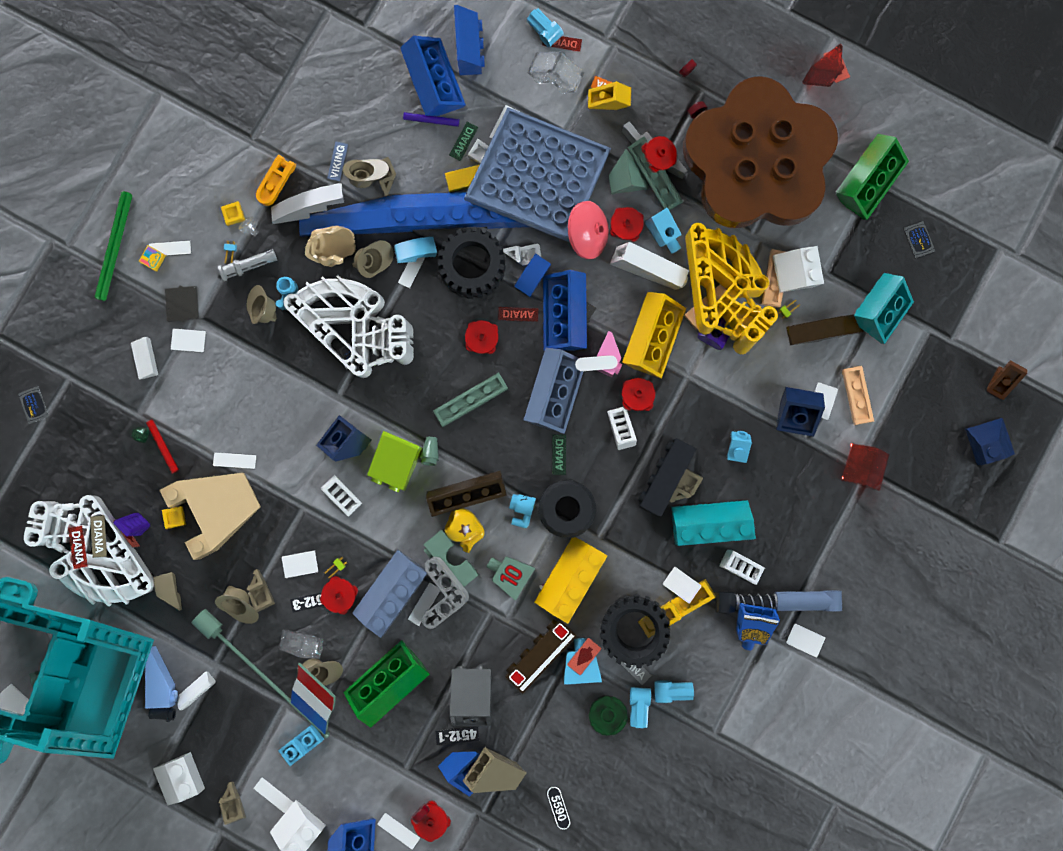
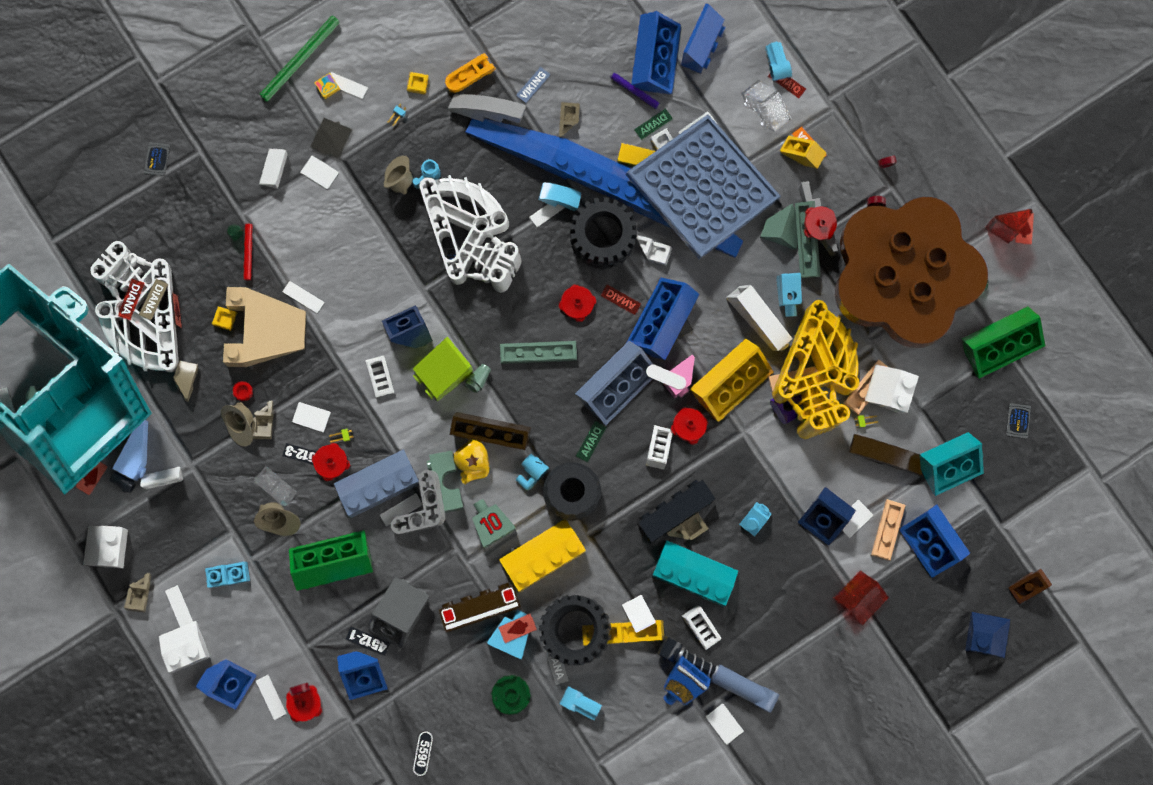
camera: 25 degrees right, 5 degrees down
(132, 524) = (187, 305): dark purple slope -> none
(132, 726) = (89, 481): none -> clear red sticker
(226, 574) = (242, 391): none -> red tile
(239, 267) = (398, 132): light grey pin -> none
(248, 226) = (425, 101): clear tile -> none
(308, 693) = (260, 533): flag -> none
(330, 245) = (487, 154): tan hair -> none
(364, 172) = (550, 106): dark tan piece -> none
(373, 258) = (519, 185): dark tan piece -> none
(493, 773) = (383, 687): dark tan slope -> none
(532, 275) = (651, 271): blue slope -> none
(588, 230) = (720, 257): coral dish -> none
(627, 224) = (759, 270): red piece -> none
(640, 701) = (544, 699): medium azure piece -> none
(904, 384) = (934, 541): none -> blue slope

